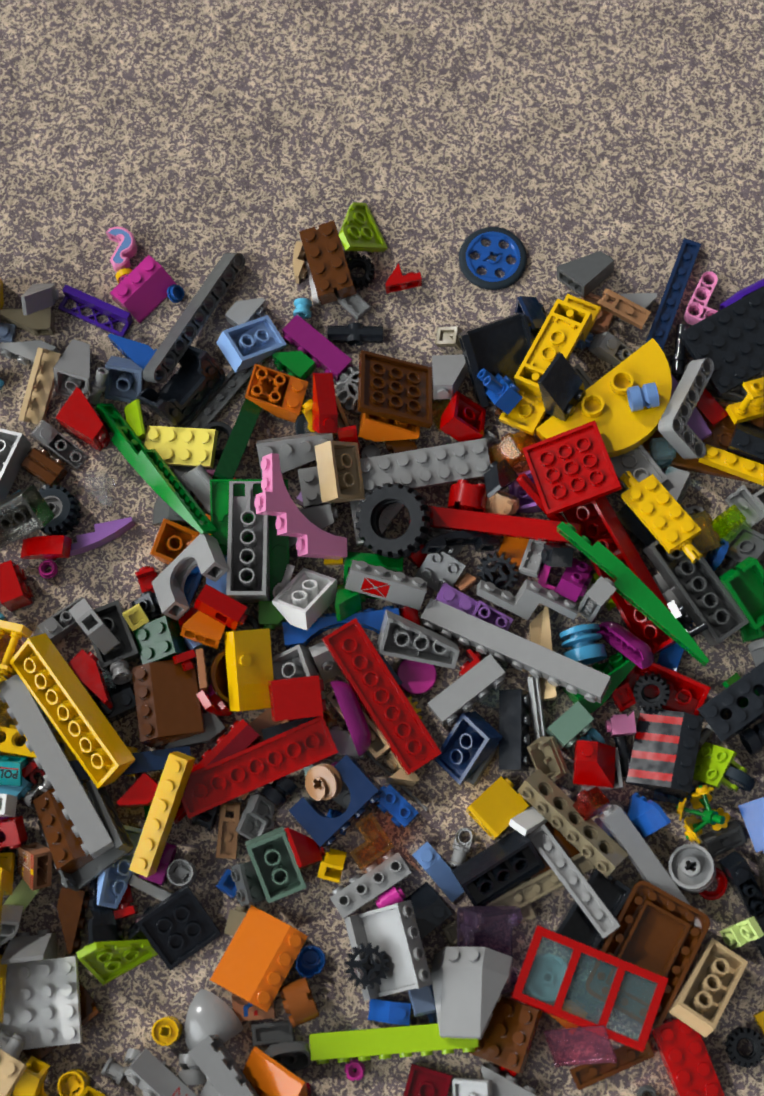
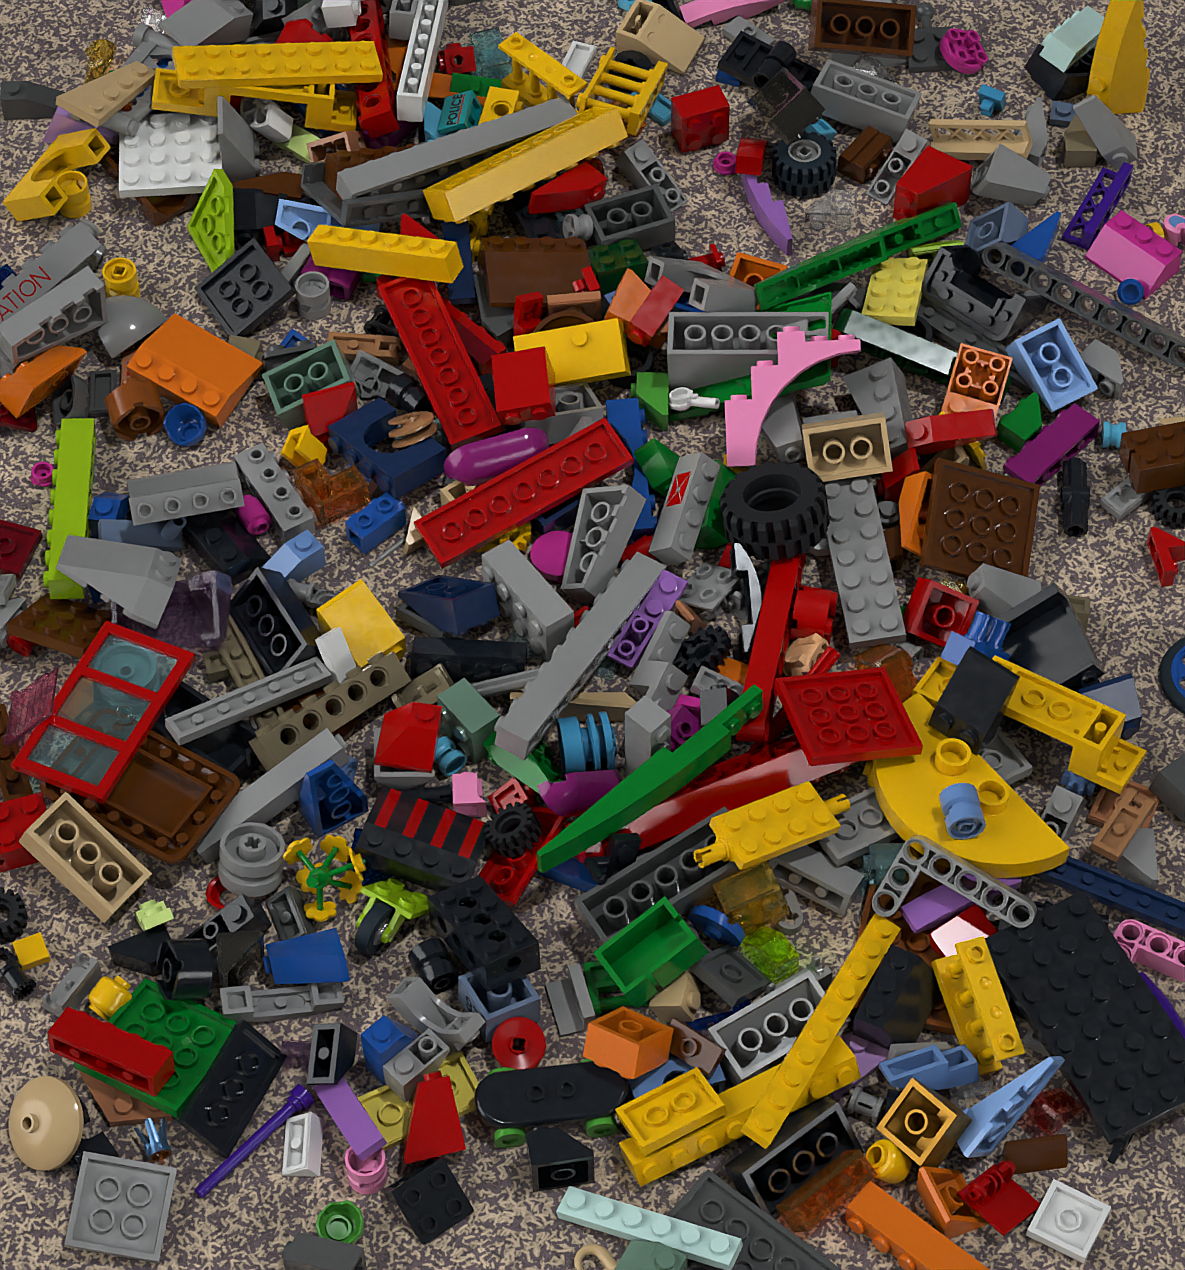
camera: 90 degrees right, 20 degrees down
(94, 626) = (635, 187): light grey slope -> none
(98, 385) = (982, 202): light grey pin -> none
(135, 617) = (649, 236): light yellow plate -> none
(306, 598) = (668, 415): white slope -> none
(375, 967) = (165, 467): black gear -> none
(499, 477) = (847, 641): black slope -> none
(590, 803) = (354, 726): clear red brick -> none

